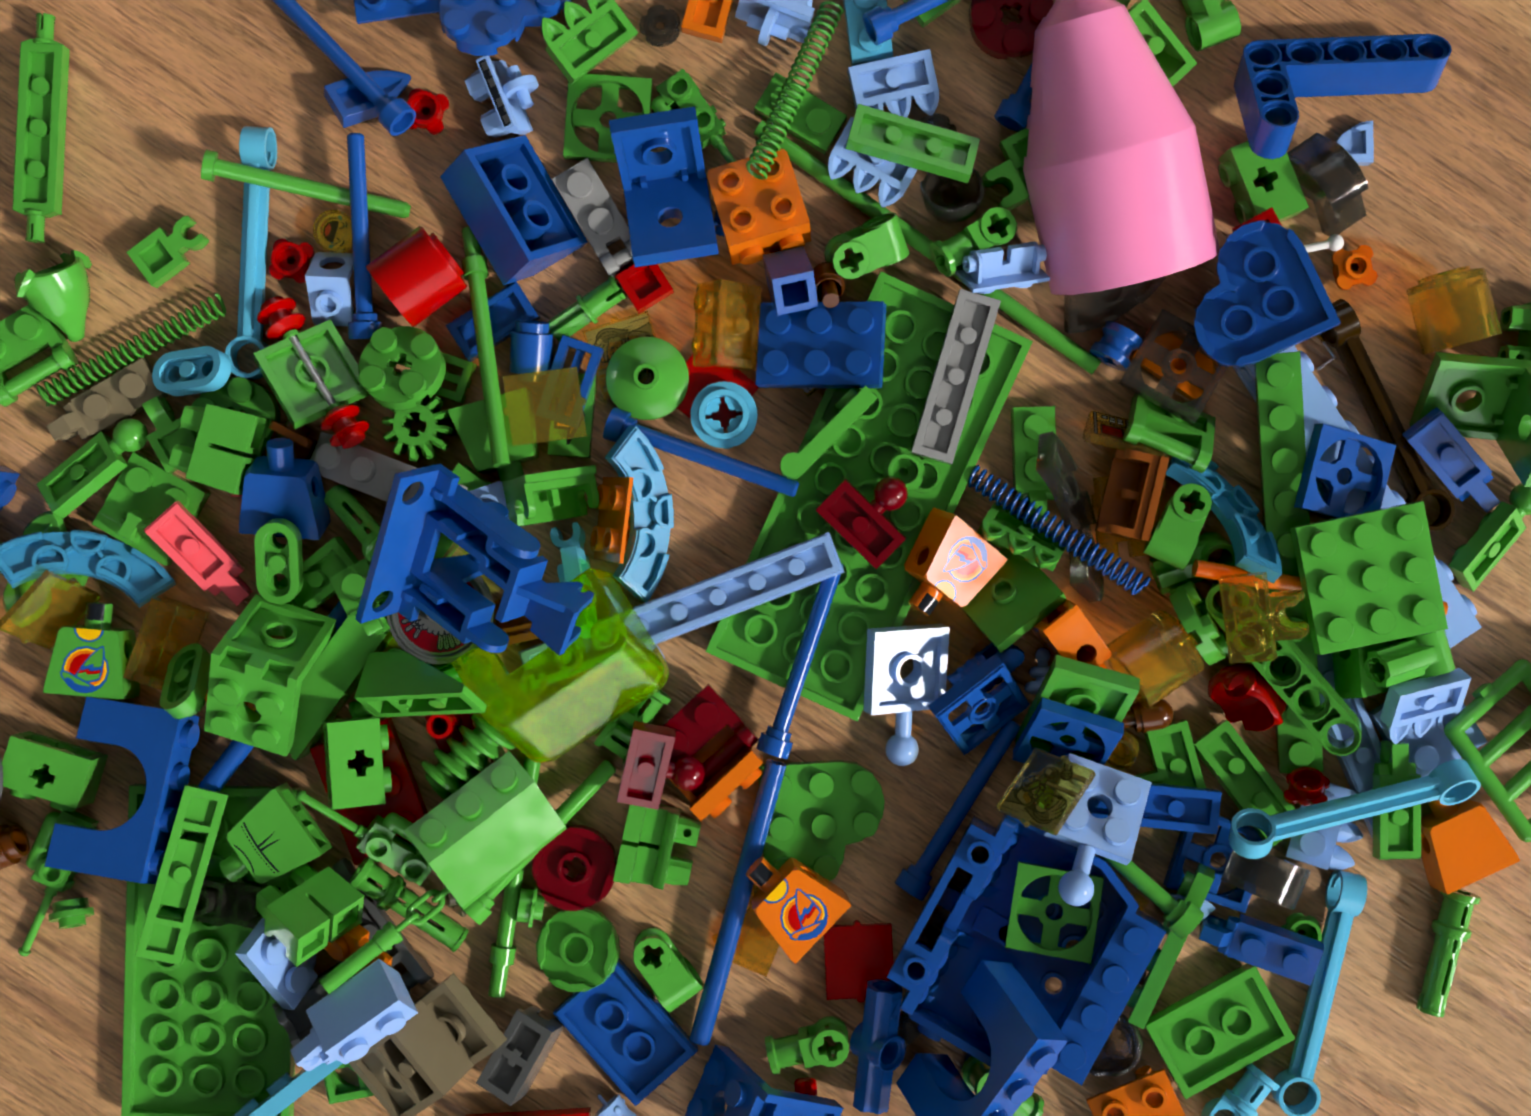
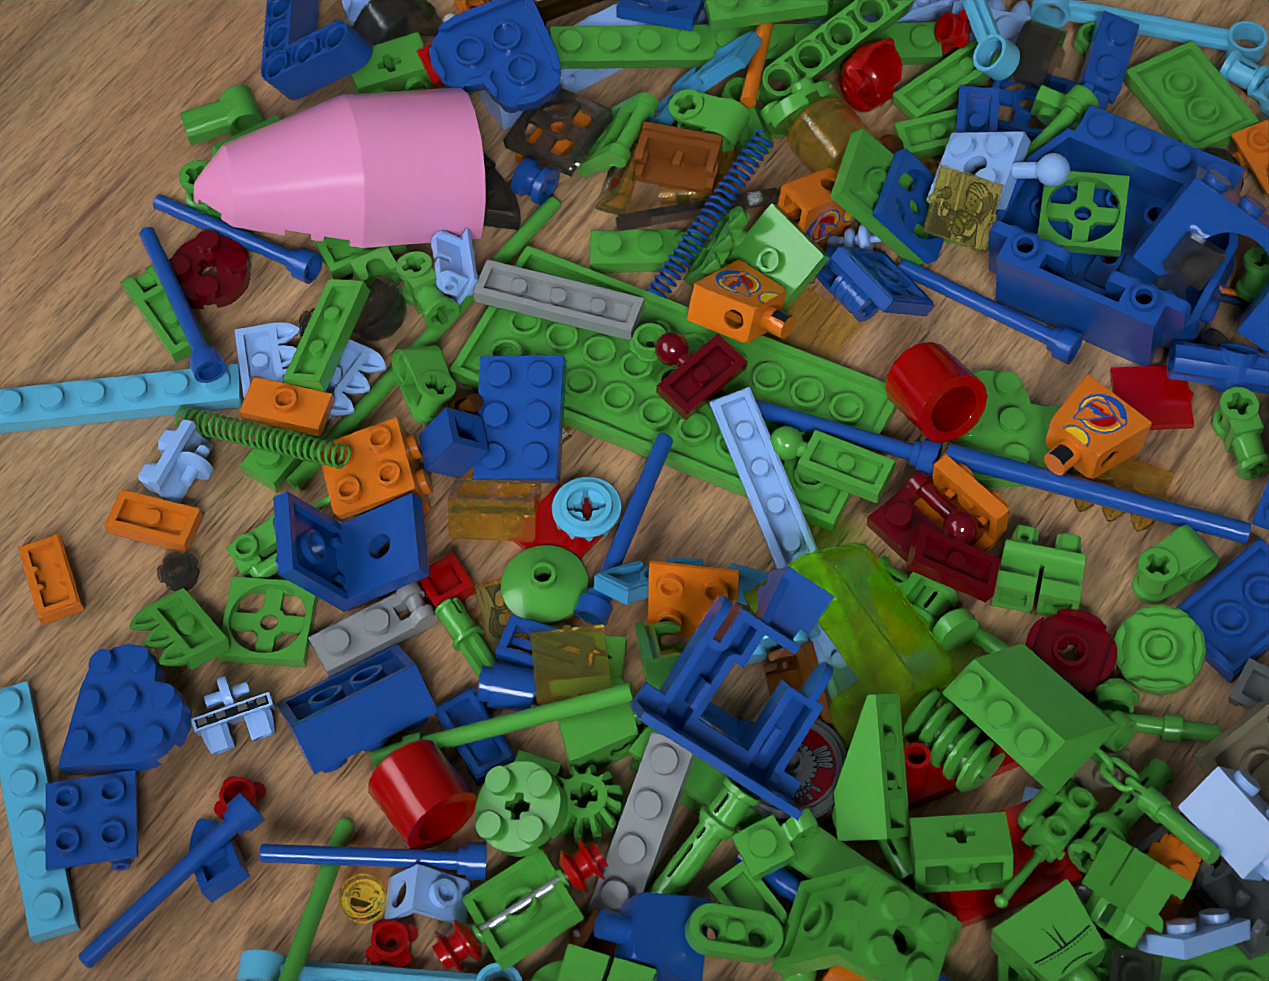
camera: 85 degrees left, 30 degrees down
(587, 763) = (955, 629): none -> bright green tile
(764, 654) = (835, 462): none -> bright green plate
(825, 434) = (610, 403): bright green plate -> none
(832, 111) = (287, 406): none -> orange plate
(836, 754) = (936, 392): none -> red piece
(889, 693) = (851, 344): light blue plate -> none
(967, 1017) = (1190, 264): none -> clear smoke plate
(1256, 617) = (793, 46): clear yellow plate -> none

